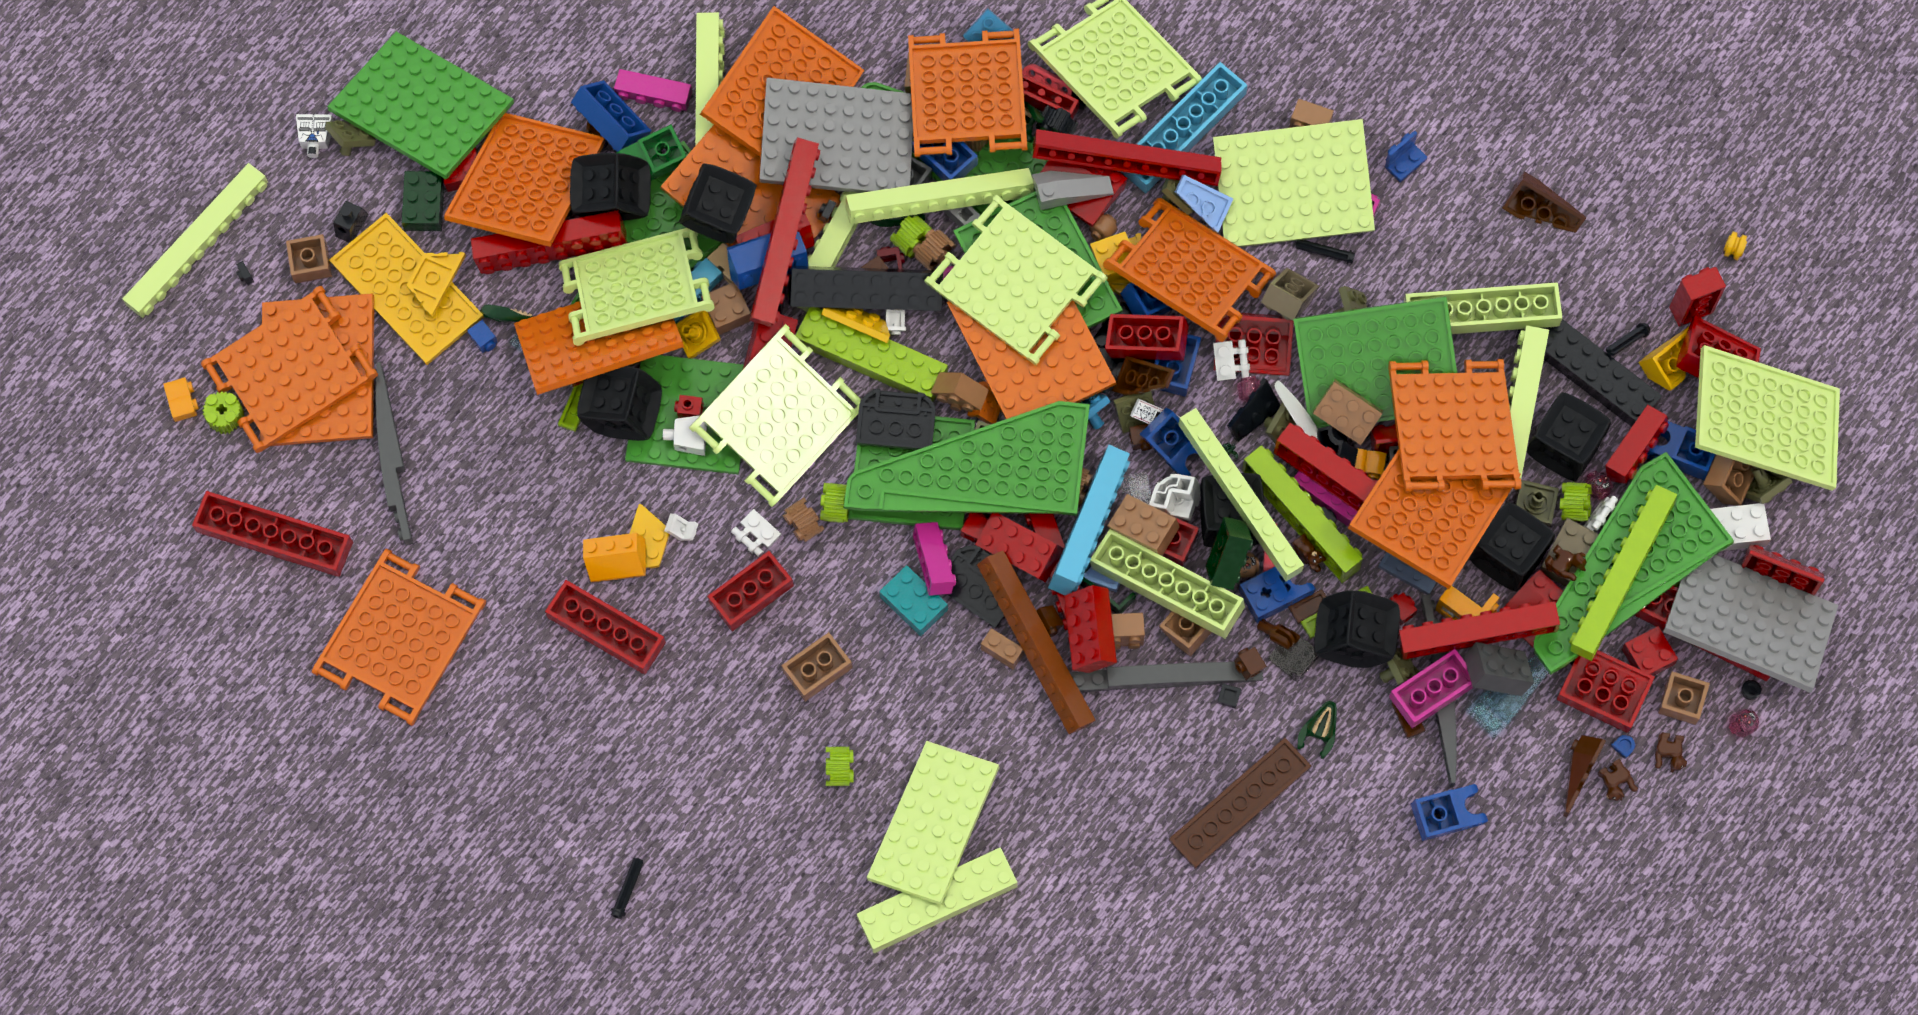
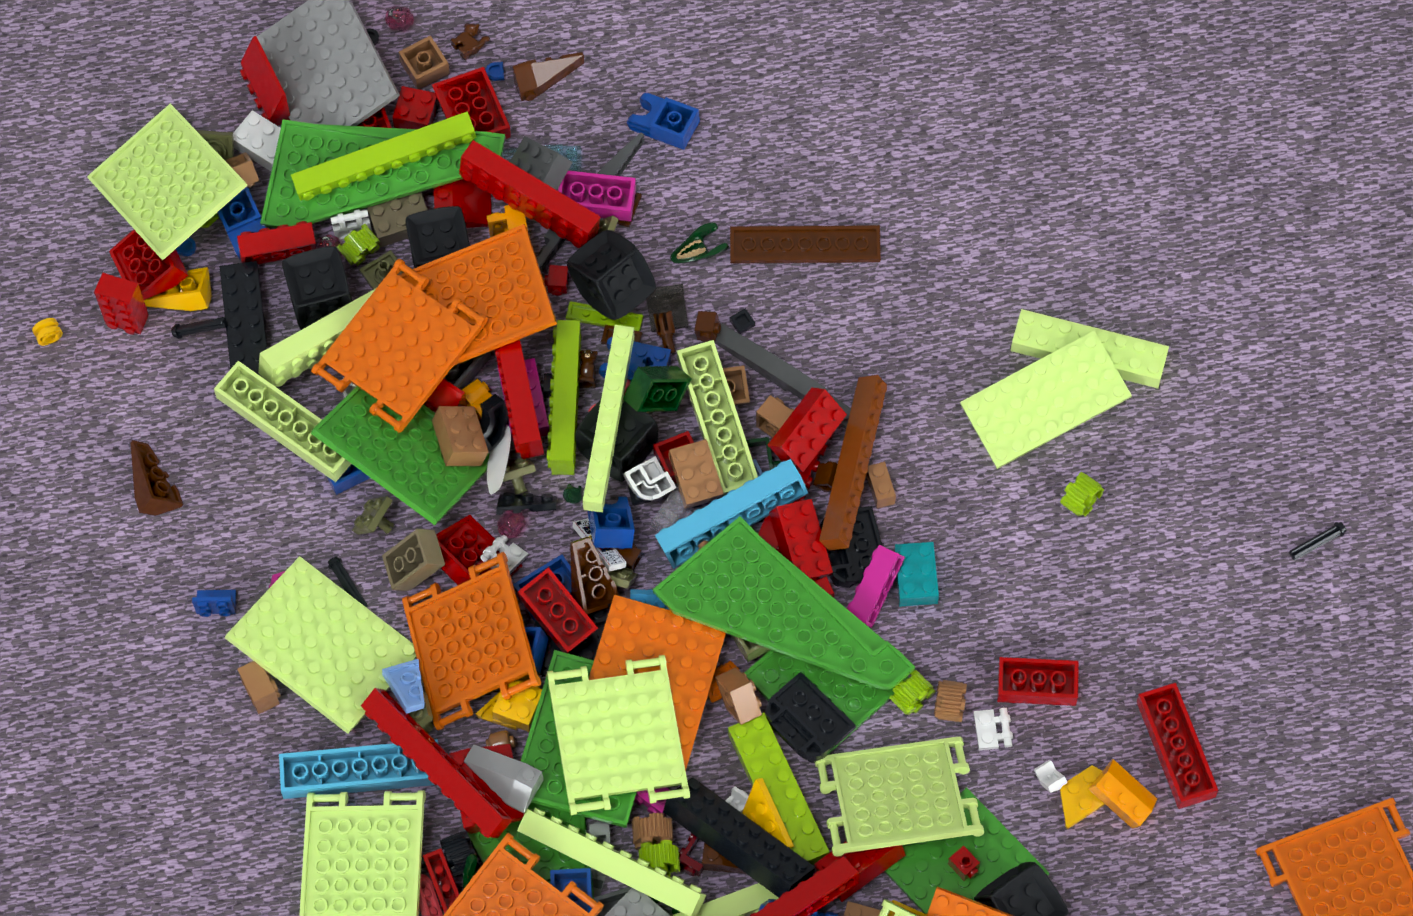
camera: 140 degrees left, 5 degrees down
(684, 438) = (987, 845): white torso -> none
(817, 666) = (1035, 582): medium nougat brick -> none
(1564, 561) = (419, 200): reddish brown animal -> none
(1614, 779) = (525, 53): reddish brown animal -> none

